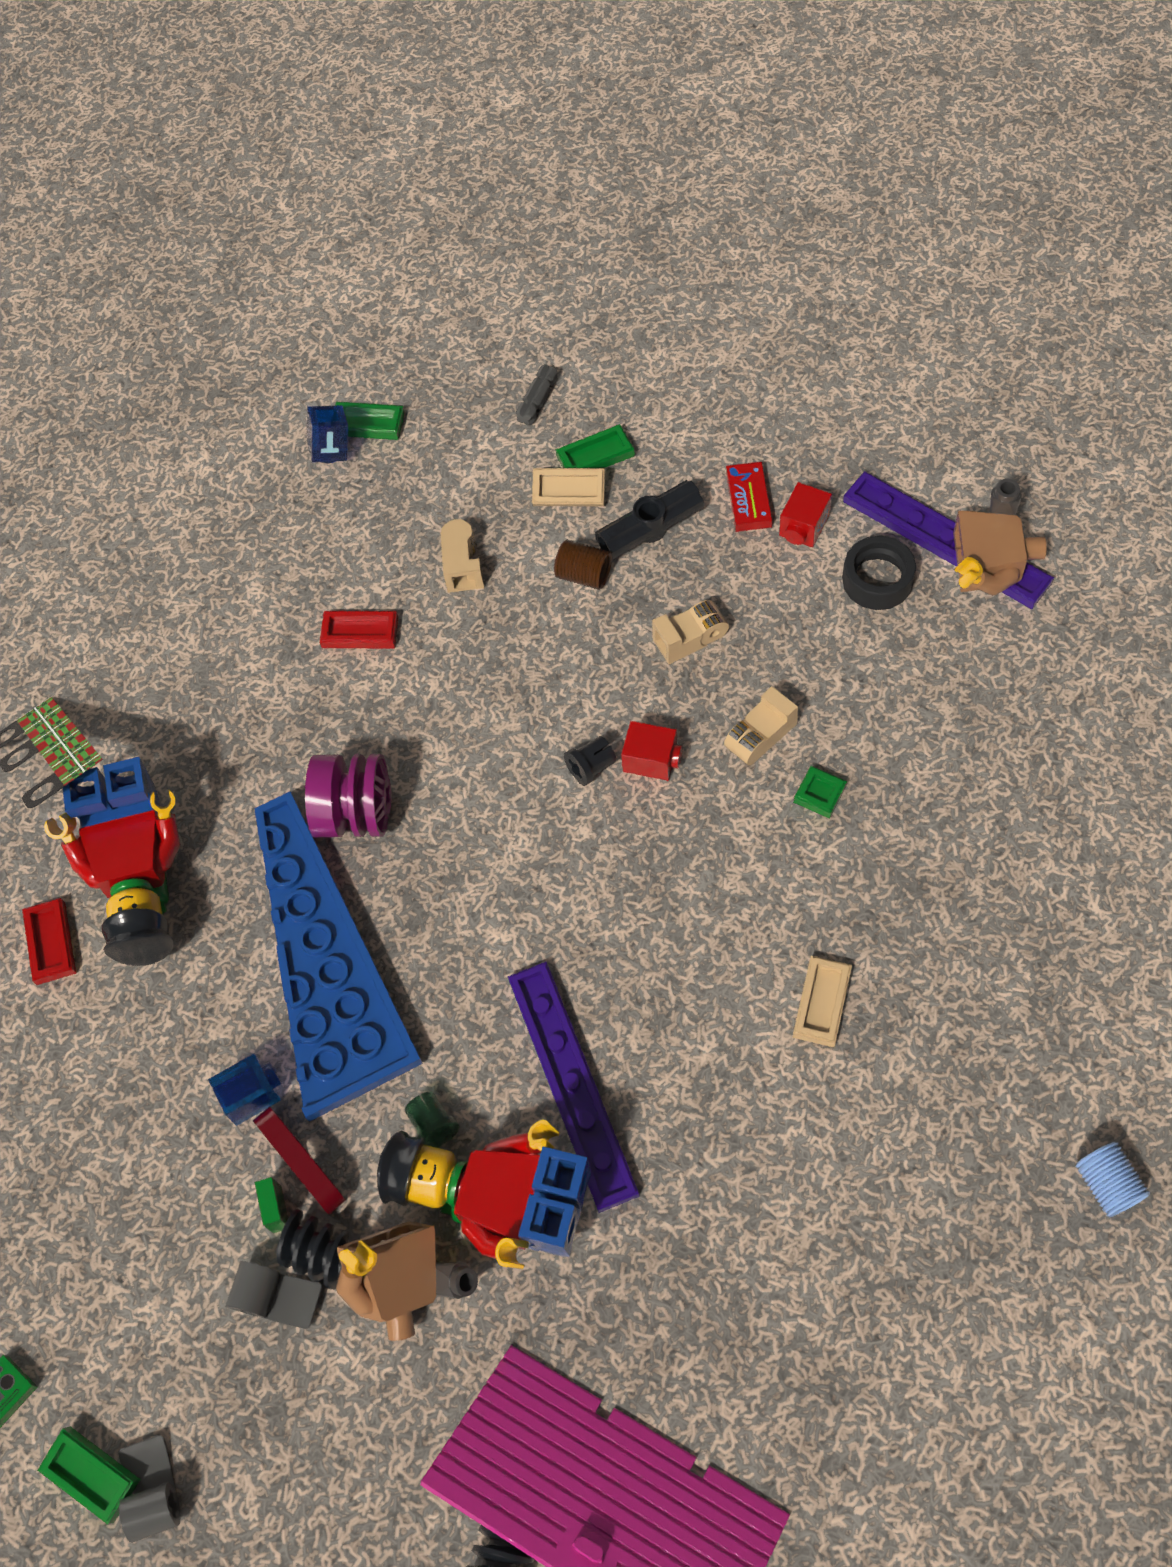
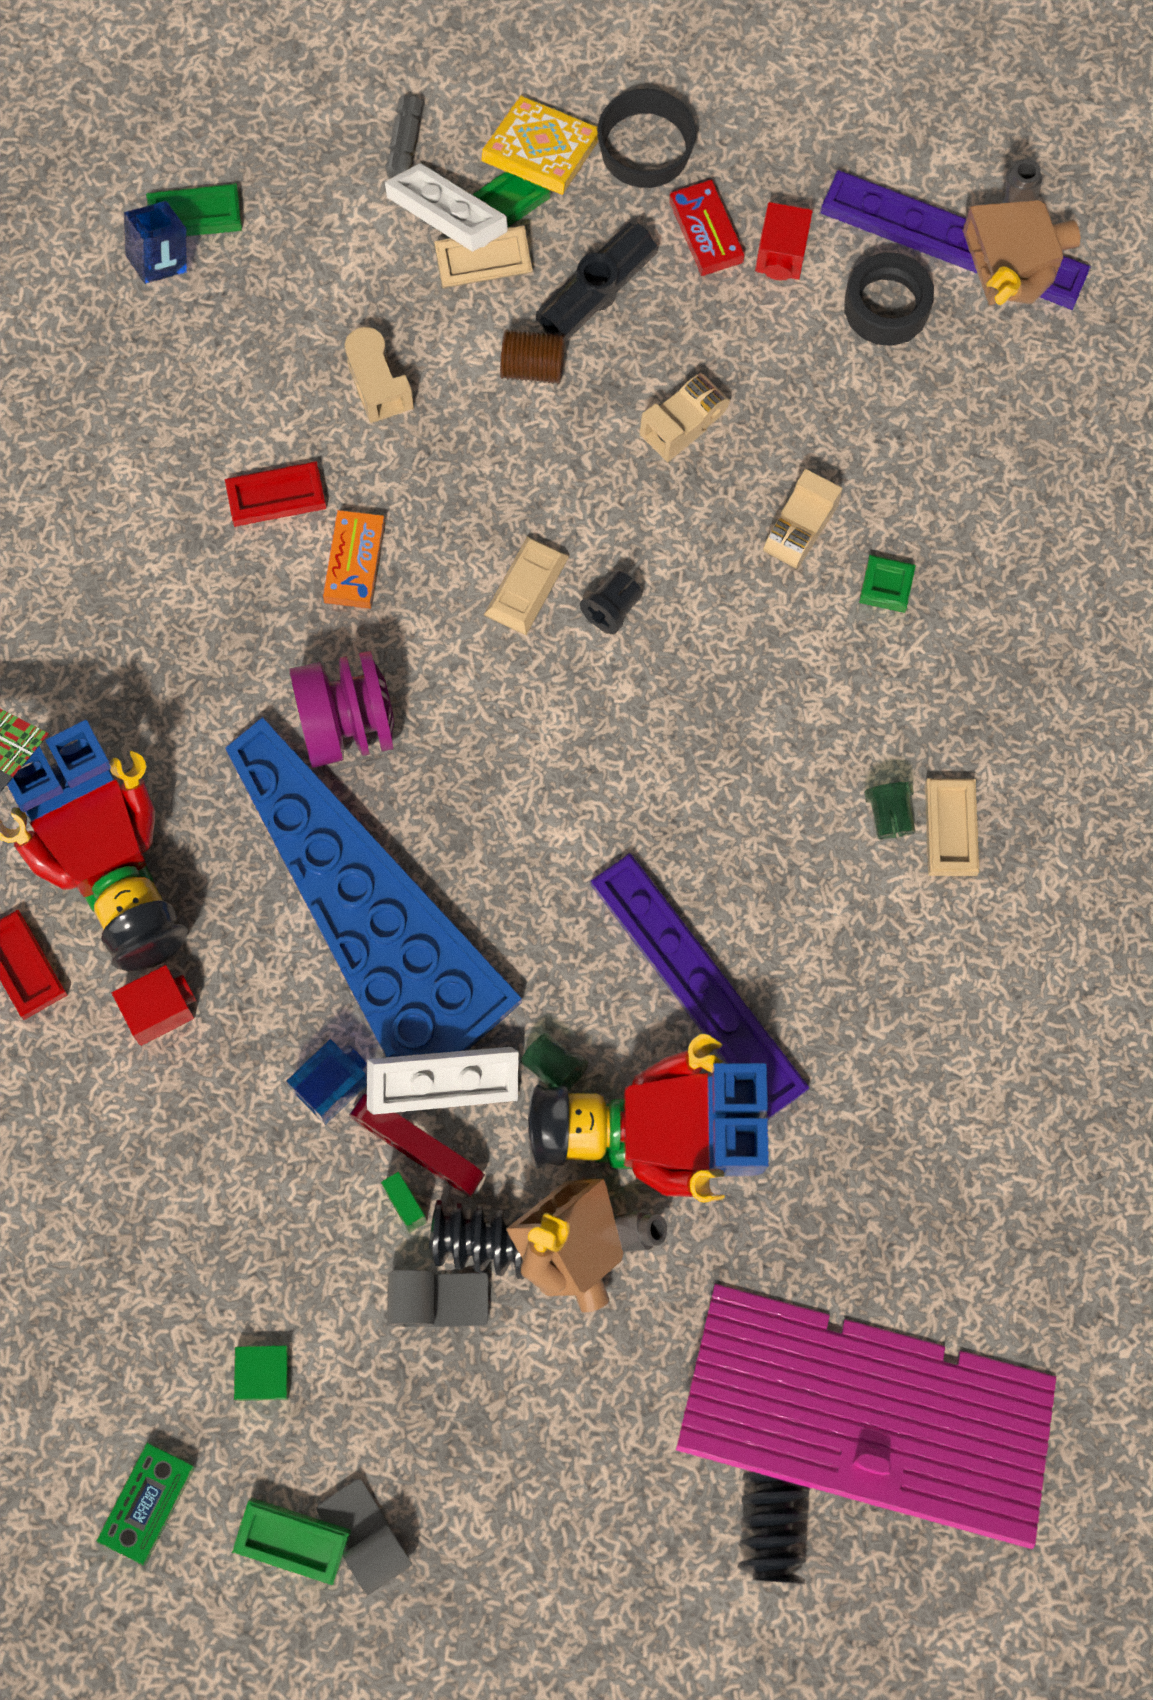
camera: 25 degrees left, 10 degrees up
(114, 1320) = (261, 1373): none -> green tile
(133, 995) = (155, 1004): none -> red brick
(331, 1109) = (442, 1080): none -> white plate
(401, 689) = (354, 559): none -> orange tile
(529, 735) = (526, 585): none -> tan tile
(549, 445) = (446, 207): none -> white plate
(636, 415) = (540, 145): none -> yellow tile
(651, 751) = (682, 576): red brick -> none
(718, 398) = (646, 102): none -> black tyre
(773, 974) = (891, 809): none -> clear green bush

